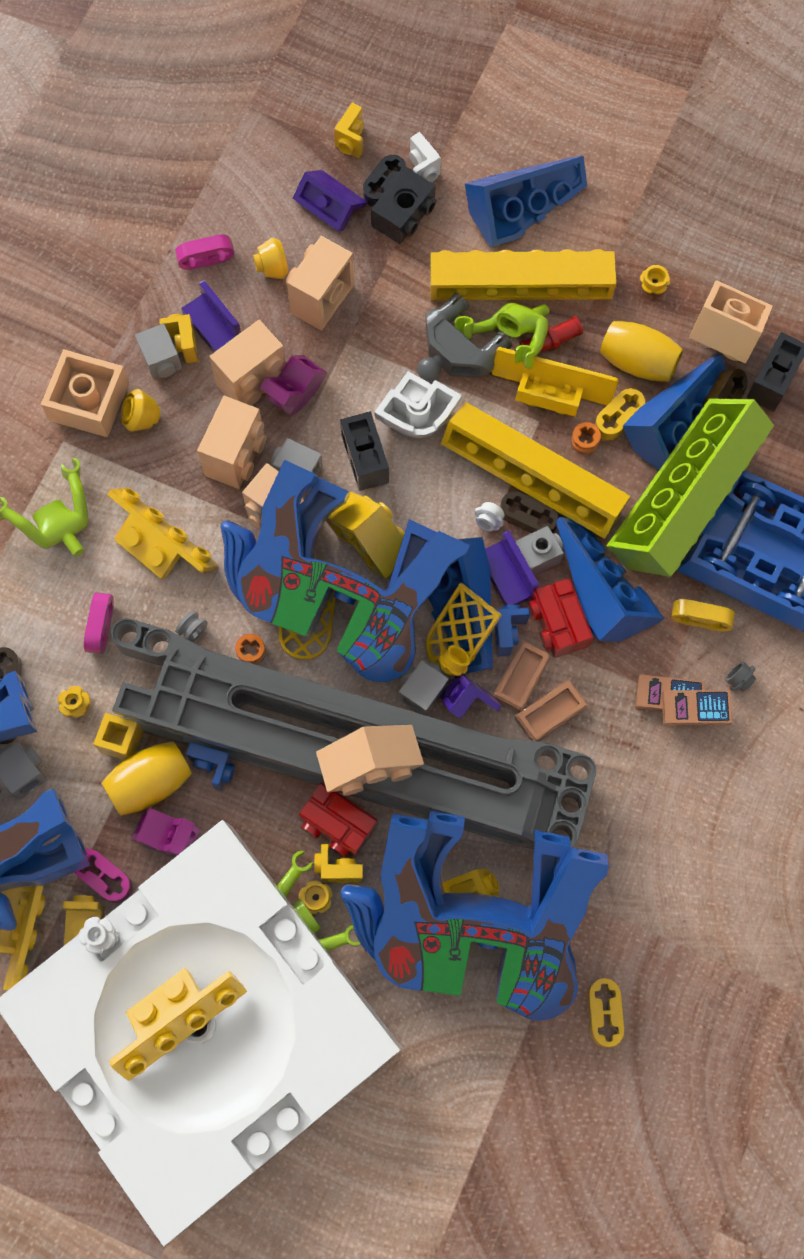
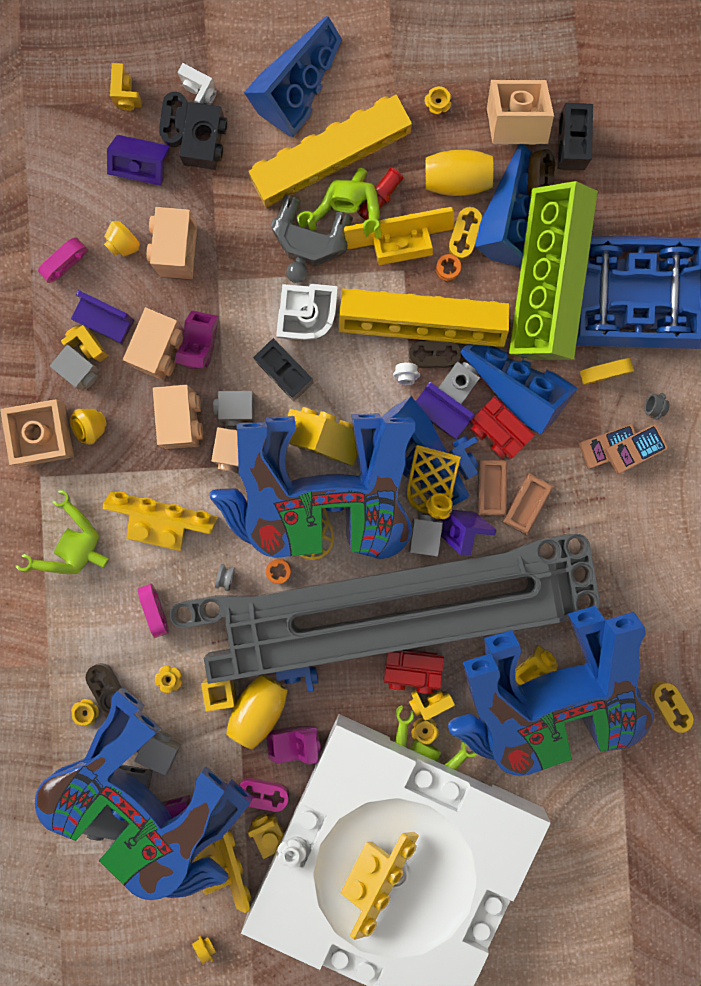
camera: 25 degrees left, 15 degrees up
(369, 757) = (424, 628): light nougat brick -> none

